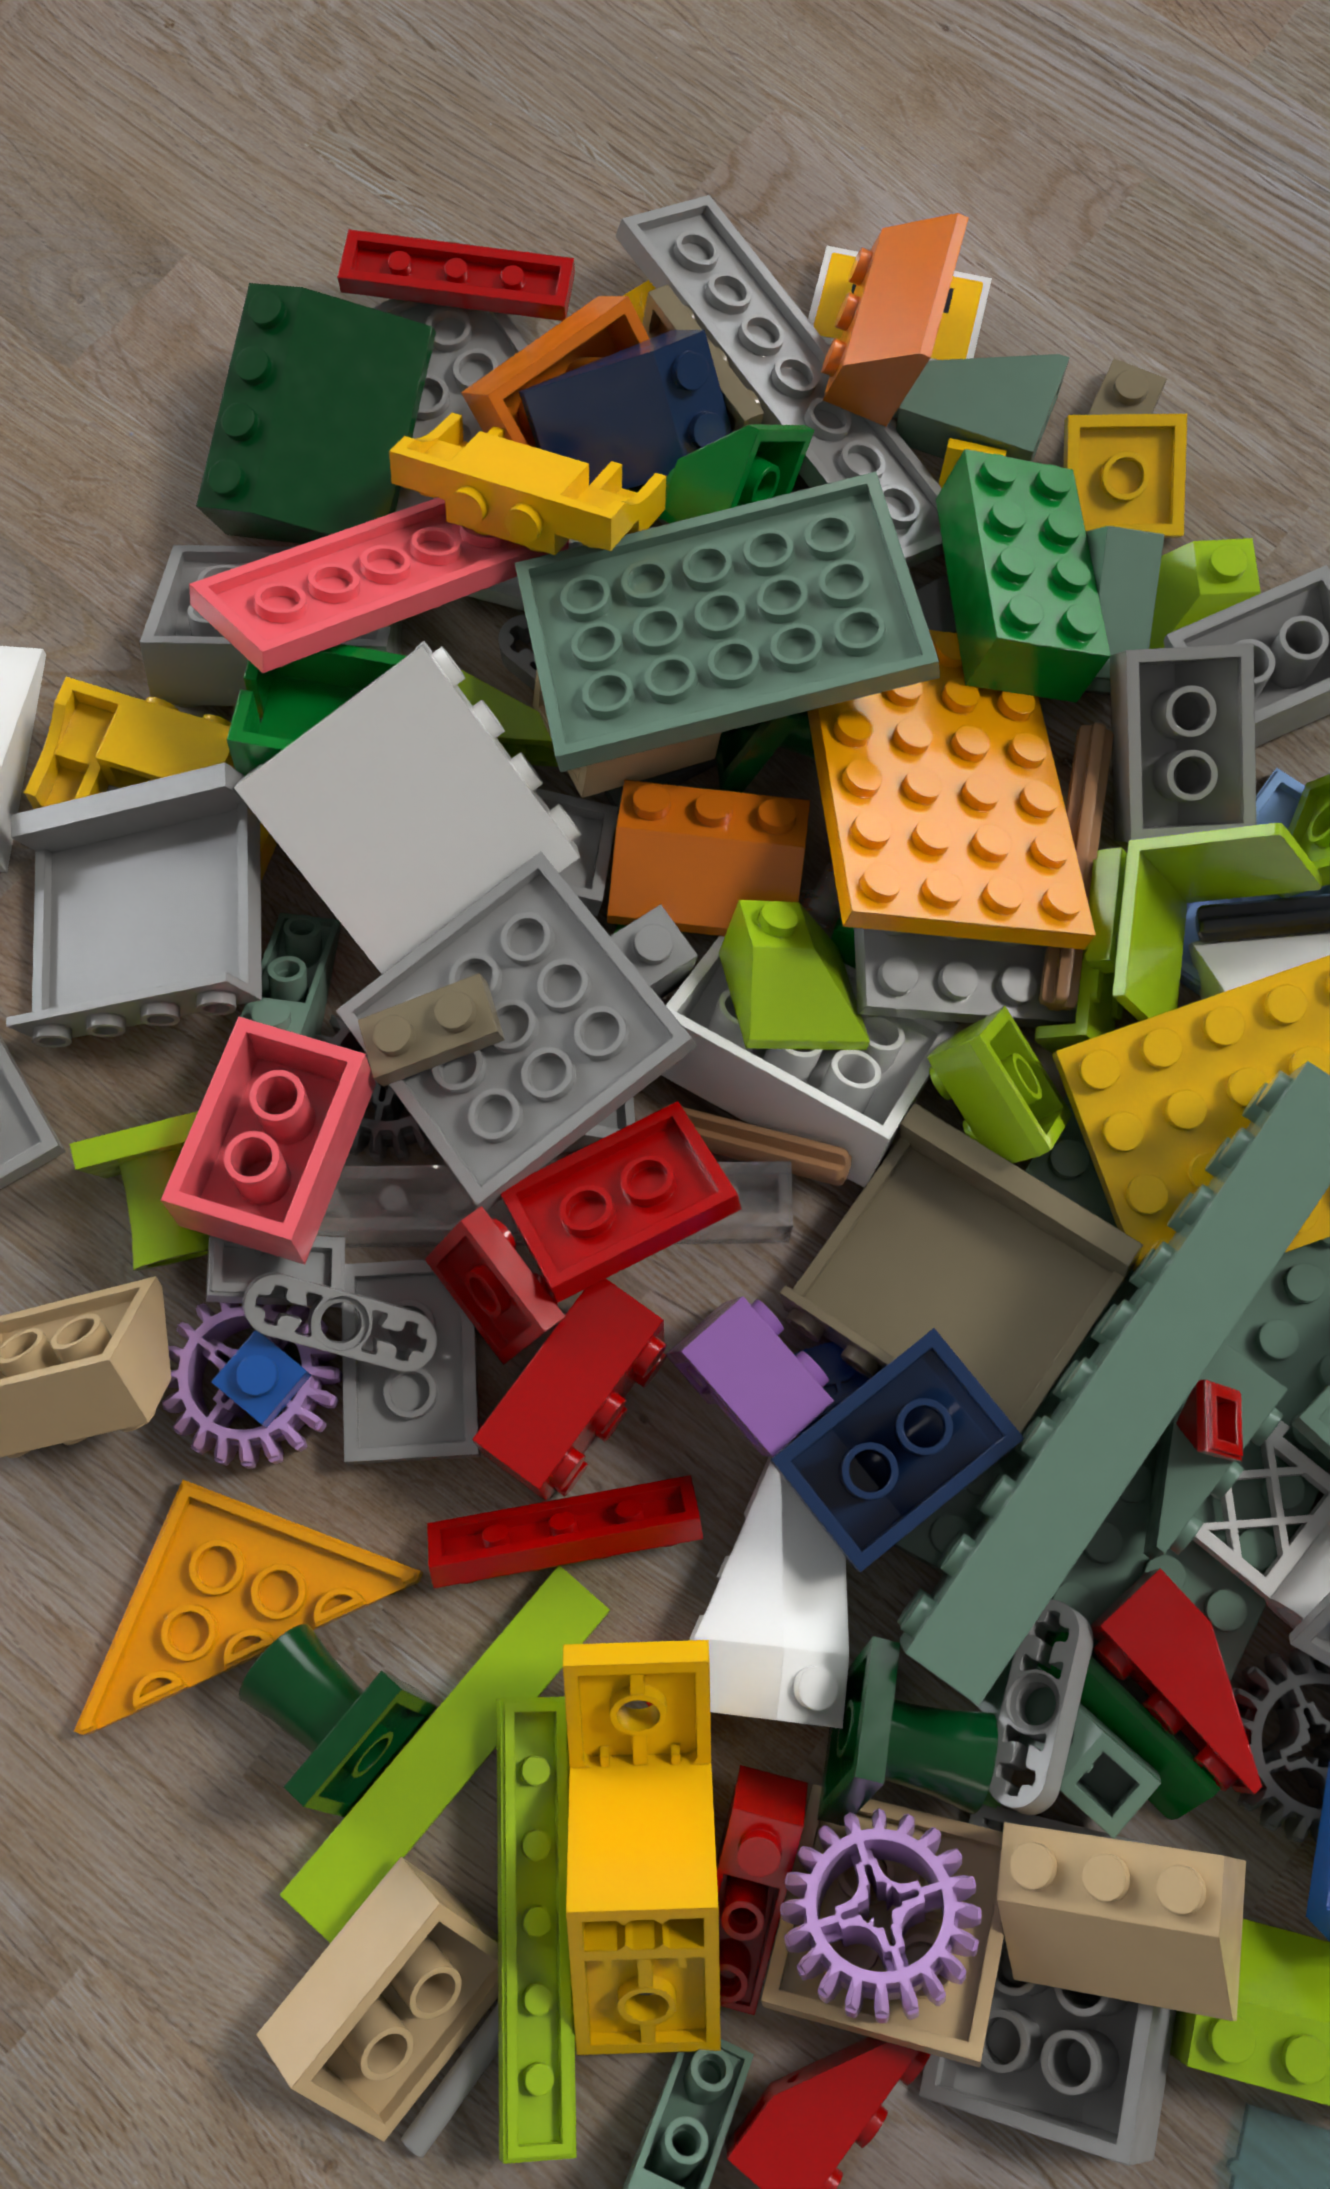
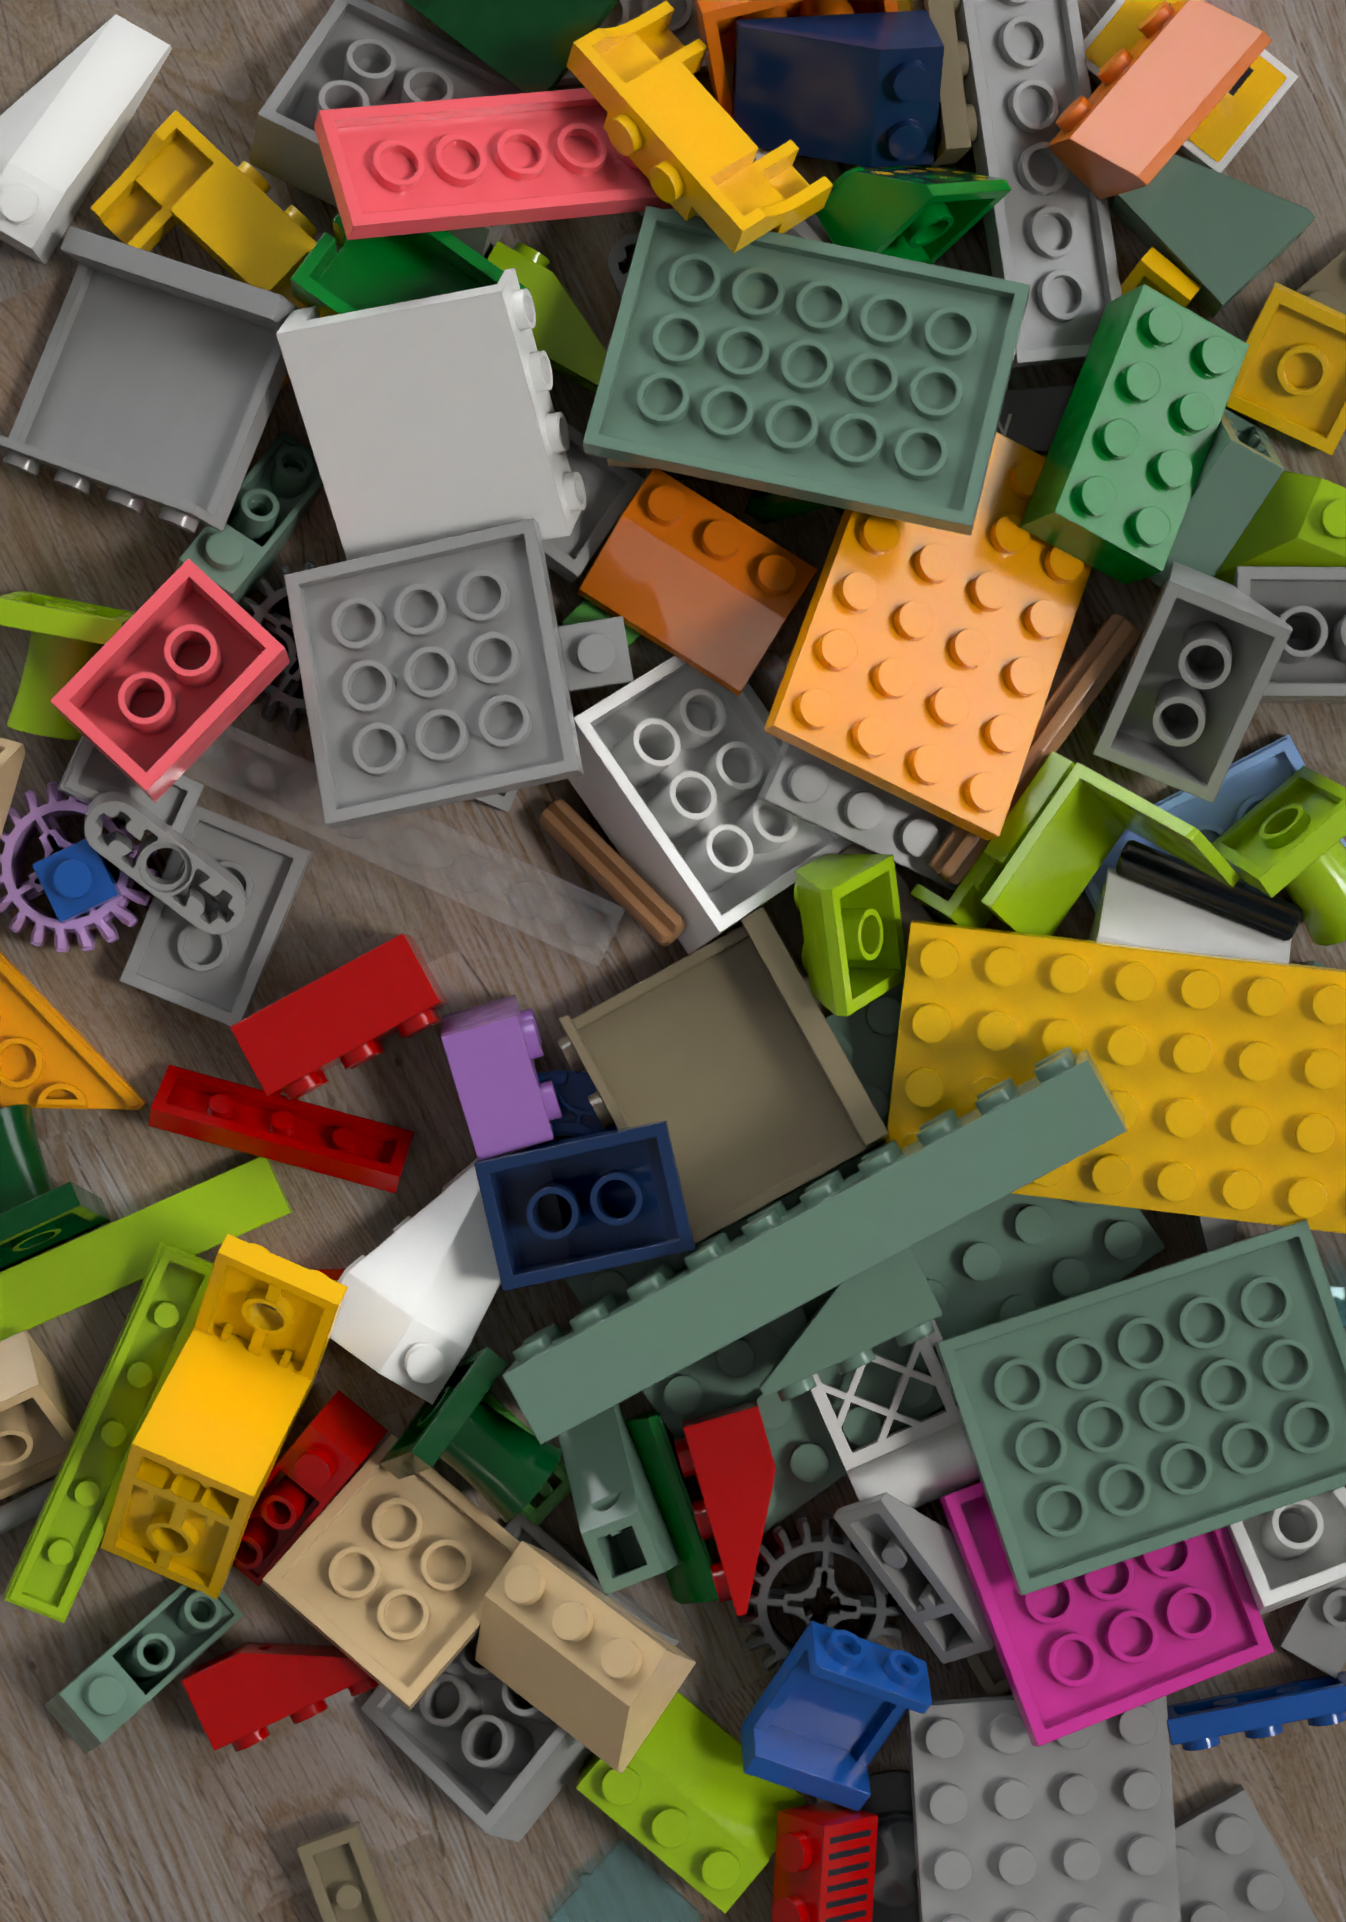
camera: 25 degrees right, 15 degrees up
(430, 1030) = (357, 643): dark tan plate -> none
(494, 1284) = (310, 898): red plate -> none
(619, 1201) = (450, 879): red plate -> none
(788, 980) = (710, 740): lime slope -> none
(911, 1901) = (416, 1568): lavender gear -> none
(1049, 1765) = (603, 1493): light grey beam -> none
(1213, 1420) = (860, 1313): red slope -> none

